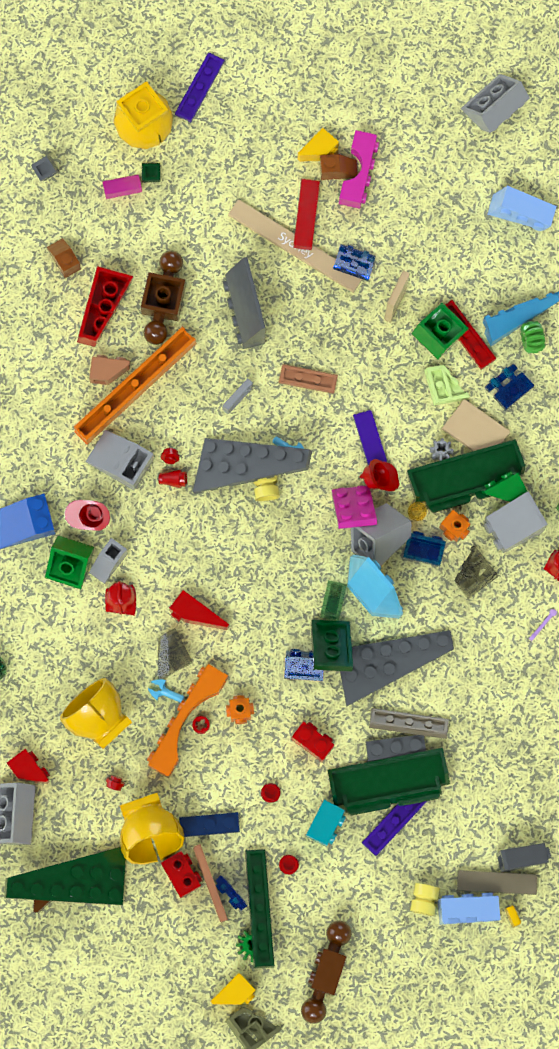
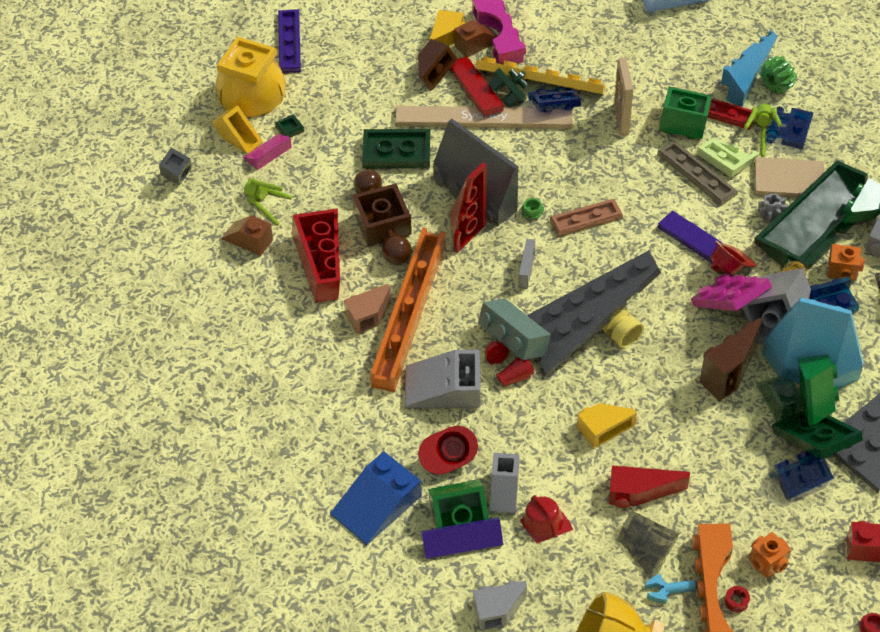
camera: 25 degrees left, 25 degrees down
(51, 642) = (498, 604): none -> light grey slope
(59, 581) = (462, 538): none -> dark purple tile
(94, 221) = (258, 190): none -> lime plant
(109, 157) = (237, 130): none -> yellow slope
(189, 447) = (514, 329): none -> sand green brick
(203, 552) = (604, 422): none -> yellow slope
(213, 239) = (396, 148): none -> dark green plate
(218, 335) = (469, 209): none -> red wedge
(274, 345) = (532, 203): none -> bright green plate
(288, 176) = (435, 62): none -> reddish brown slope
(314, 560) = (727, 363): none -> reddish brown slope
(330, 230) = (515, 94): none -> dark green hips
(352, 616) = (817, 387): none -> green slope
(359, 234) = (551, 76): none -> yellow plate
(414, 386) = (697, 173): none -> dark tan tile
(495, 368) = (763, 116): none -> lime plant

